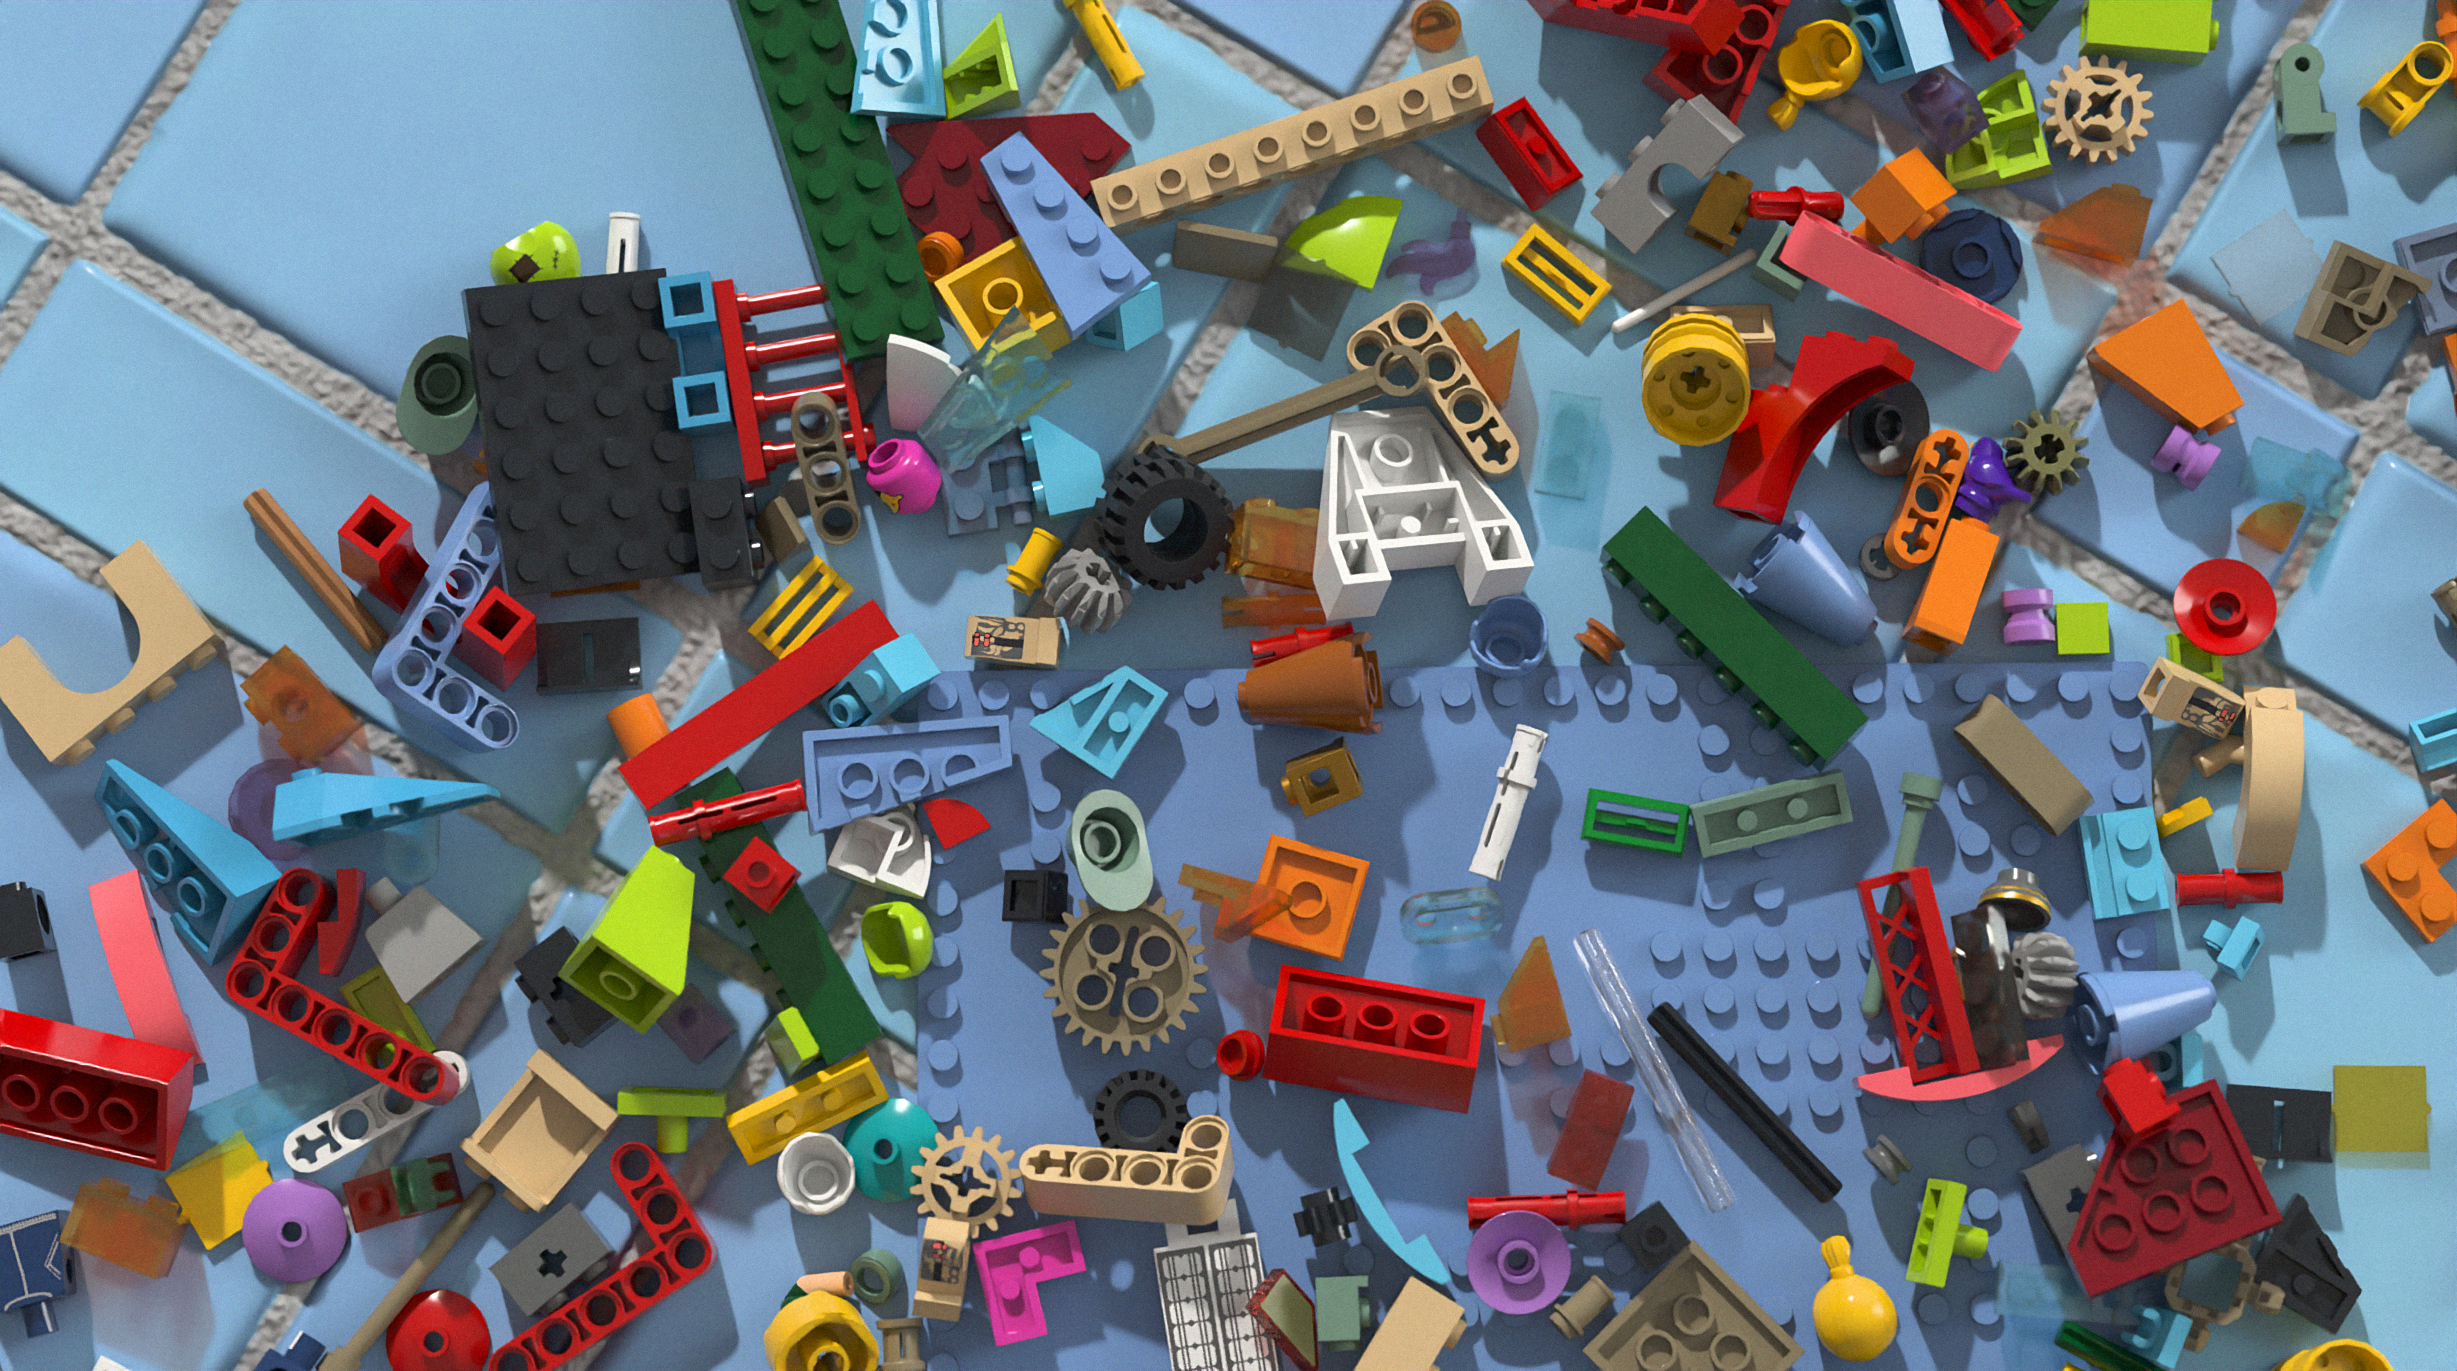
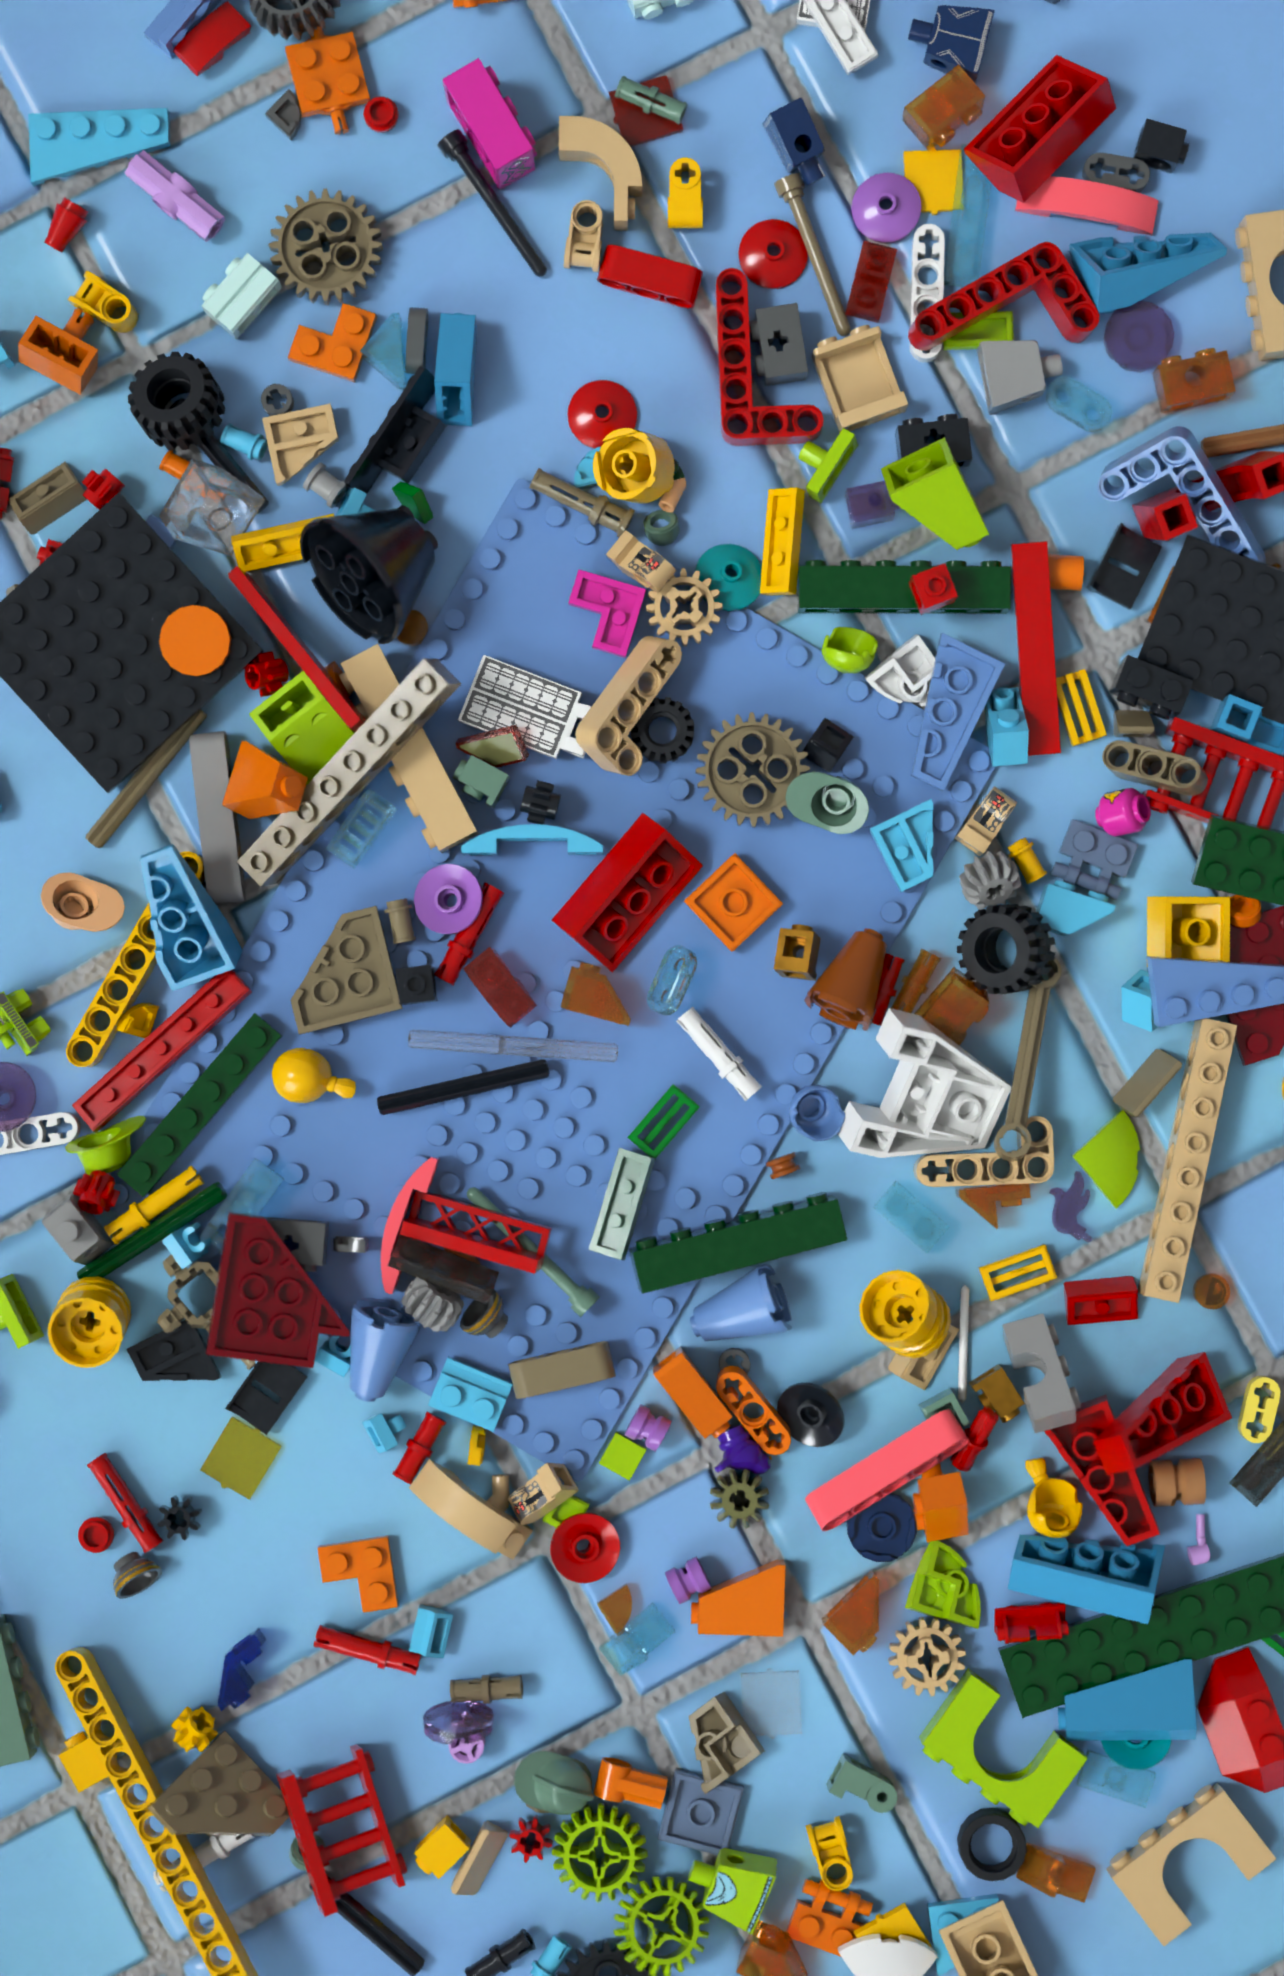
camera: 120 degrees right, 5 degrees up
(73, 965) = (1118, 165): none -> dark grey beam
(337, 807) = (1121, 363): dark azure wedge -> none
(339, 937) = (1041, 326): red slope -> none
(415, 1188) = (870, 287): clear green tile -> none
(727, 813) = (993, 551): red pin -> none
(791, 1041) = (825, 552): lime tile -> none
(816, 1173) = (740, 523): white hair -> none
(915, 381) = (1162, 857): white brick -> none
(955, 821) = (899, 723): red tile -> none
(994, 393) = (1141, 892): clear light blue wing -> none
(1241, 1055) = (663, 809): red plate -> none
(1242, 902) = (751, 860): clear orange slope -> none
(1302, 303) = (1089, 1110): clear smoke piece -> none
(1790, 422) = (846, 1354): red arch -> none
(1887, 1159) = (380, 1149): dark grey bush -> none
(1942, 1234) = (318, 1155): lime tile -> none
(1945, 109) = (980, 1565): clear purple brick -> none
(2135, 1101) = (326, 1311): red brick -> none

